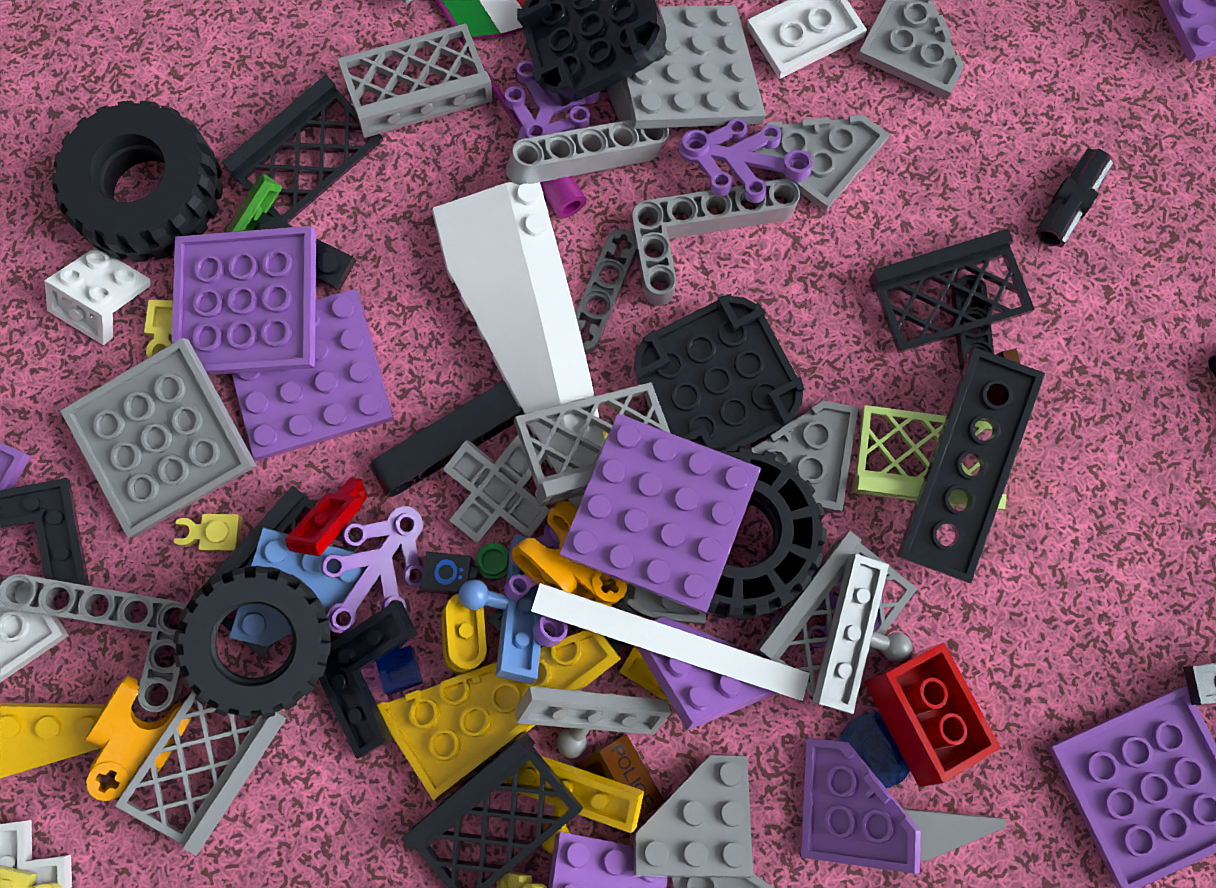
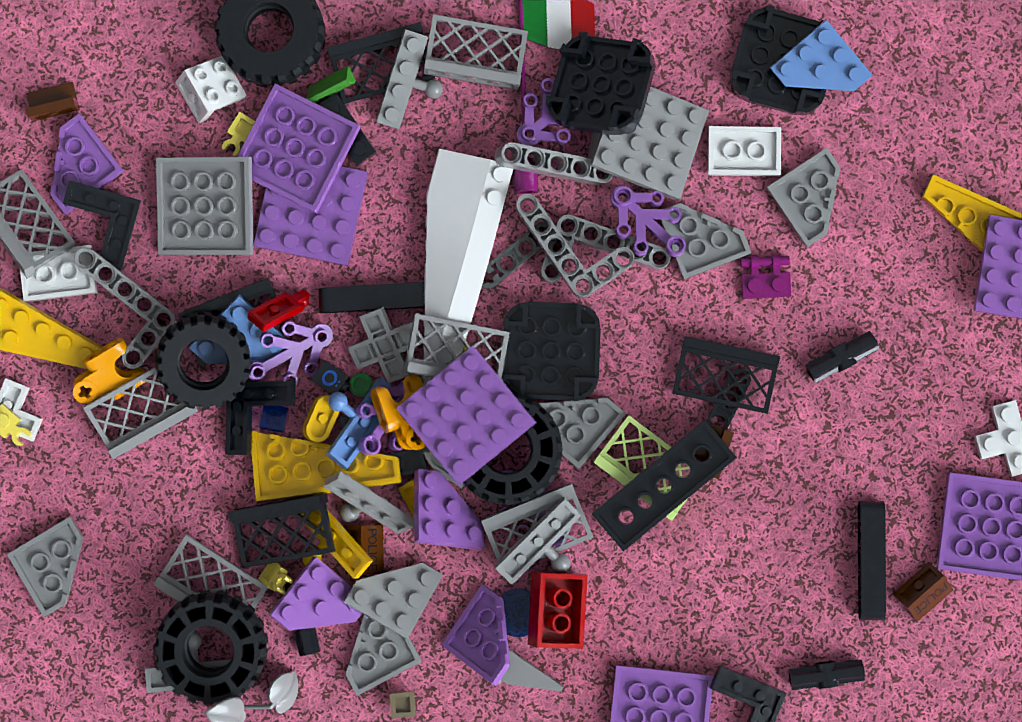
camera: 30 degrees right, 10 degrees up
(215, 532) = (209, 277): light yellow plate -> none
(342, 155) = (403, 79): none -> light grey plate
(668, 241) = (566, 252): none -> light grey beam
(670, 641) = (433, 489): white sticker -> none
(927, 166) = (766, 284): none -> magenta plate

